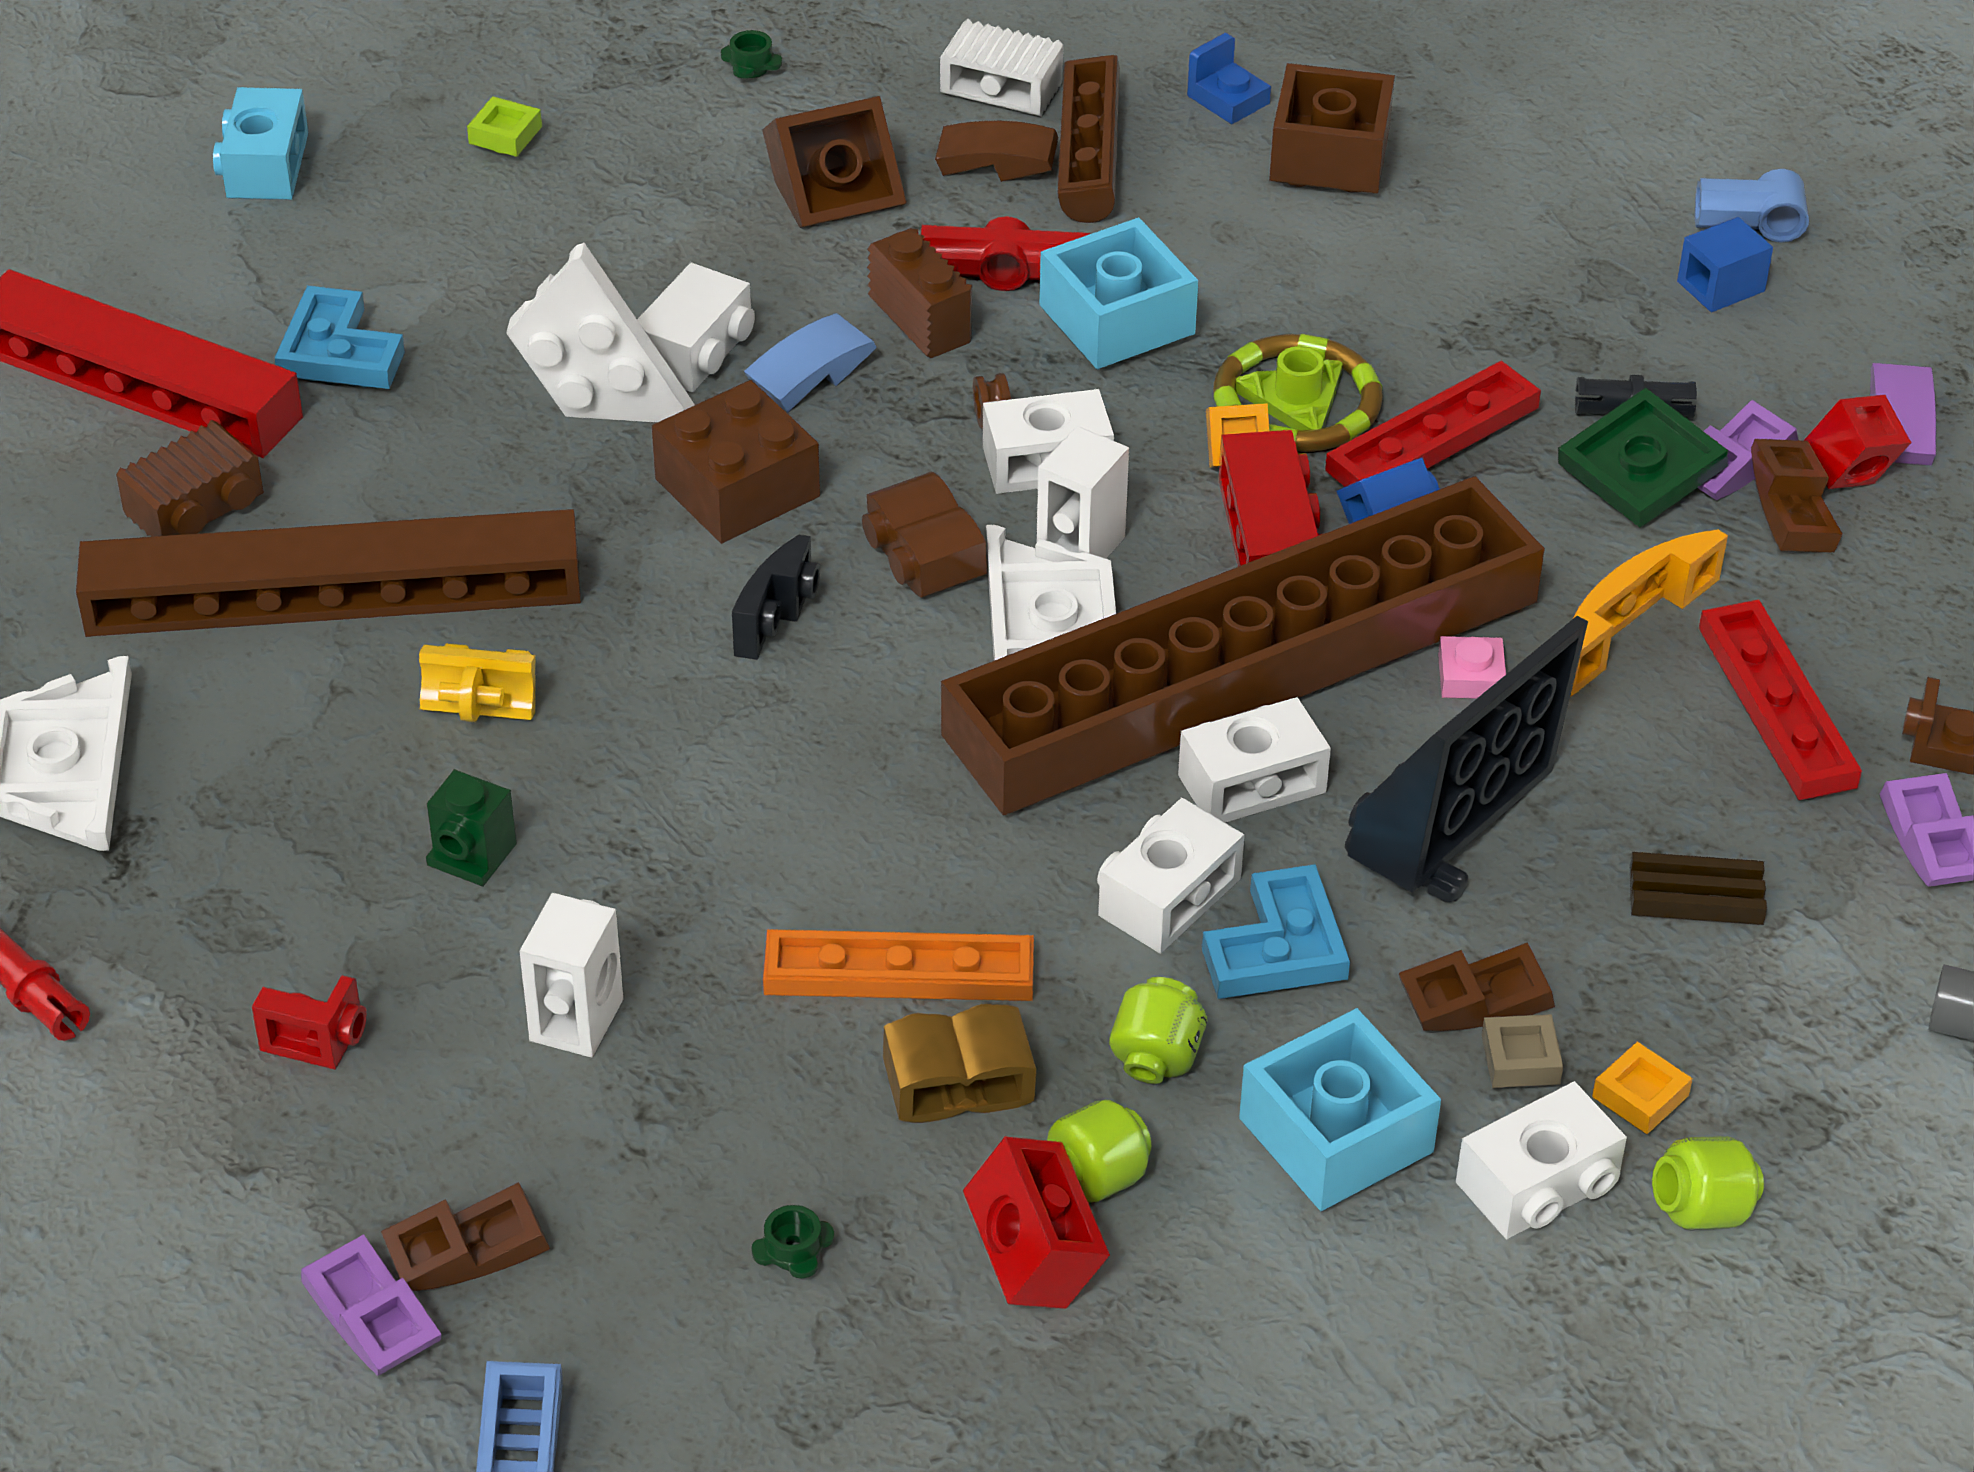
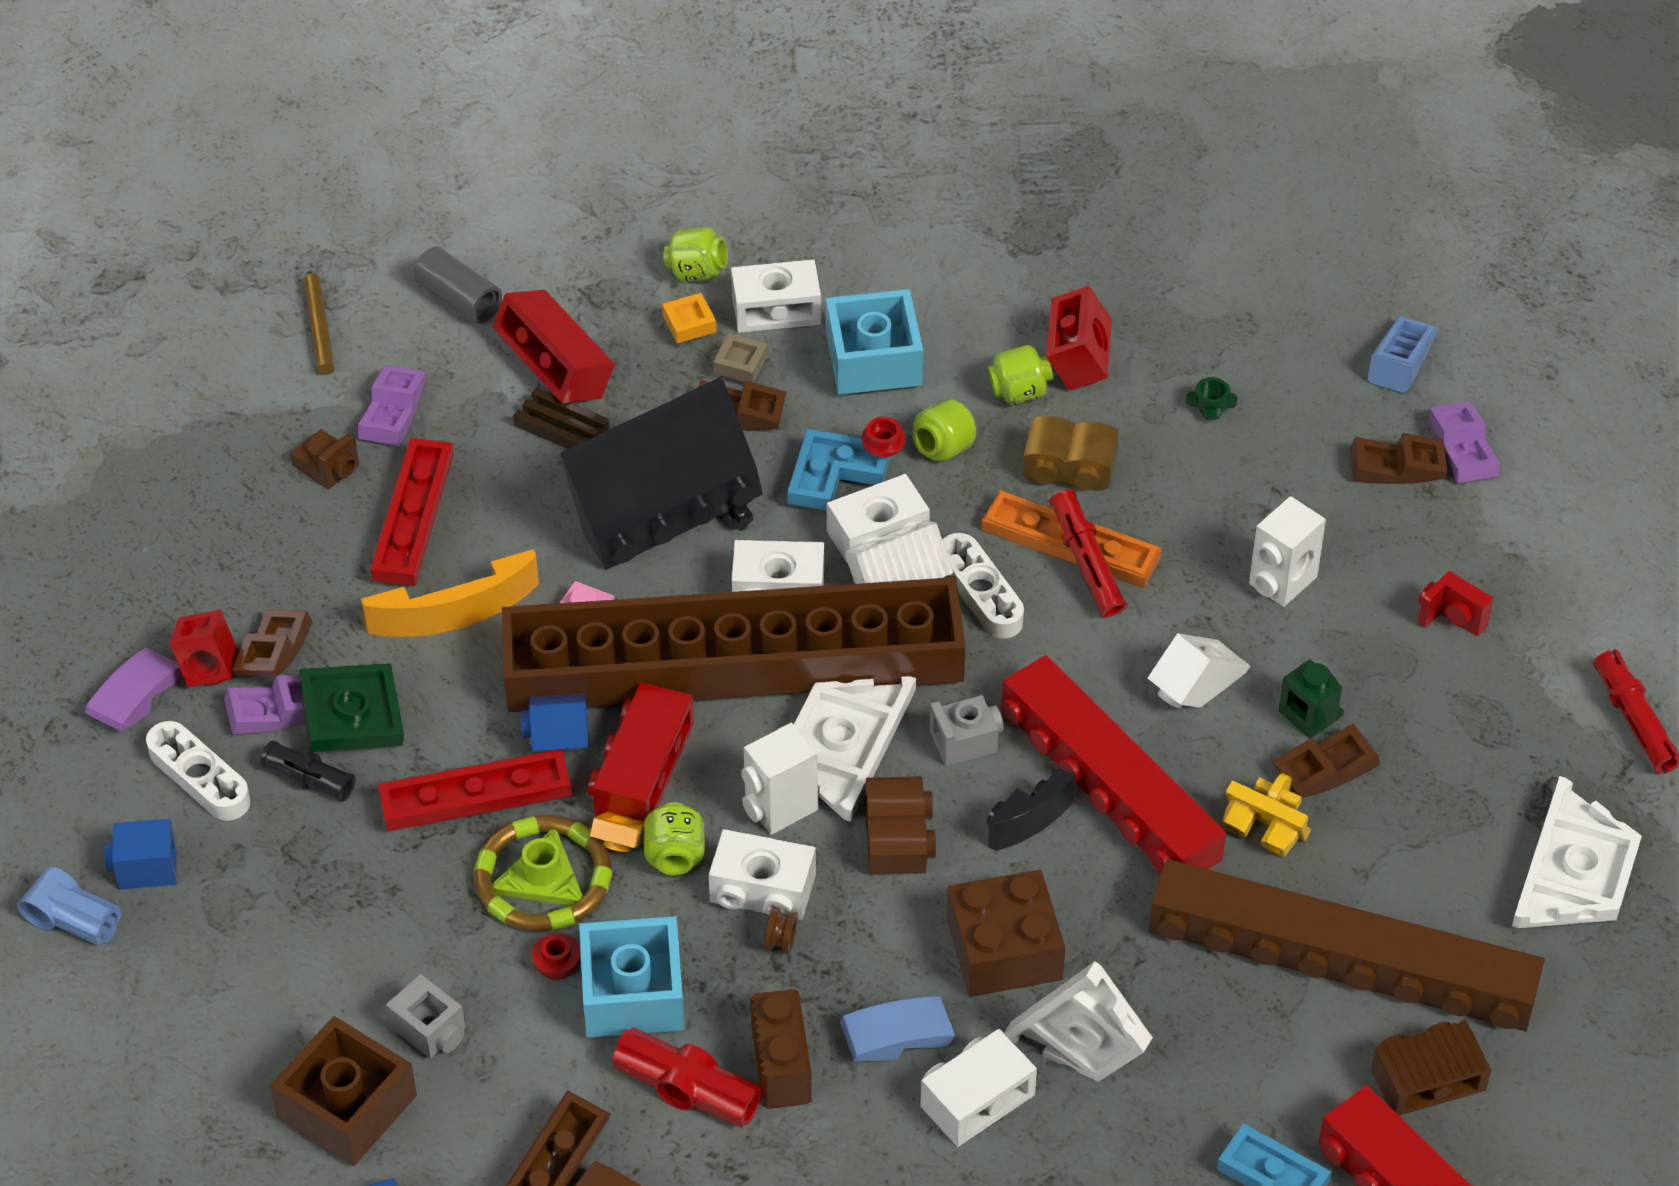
camera: 155 degrees left, 5 degrees up
(401, 798) = (1329, 763): none -> reddish brown slope
(634, 822) = (1196, 670): none -> white slope
(699, 671) = (1110, 767): none -> red brick
(875, 918) = (1080, 536): none -> red pin
(906, 661) = (965, 729): none -> light grey brick
(998, 880) = (983, 602): none -> white beam
(1103, 808) = (900, 556): none -> white brick
(1169, 436) = (674, 838): none -> lime head
(1221, 321) = (557, 966): none -> red plate
(1228, 956) = (883, 437): none -> red plate
(1306, 216) = (426, 1017): none -> light grey brick
(1786, 952) = (553, 346): none -> red brick
(1809, 376) = (203, 788): none -> white beam

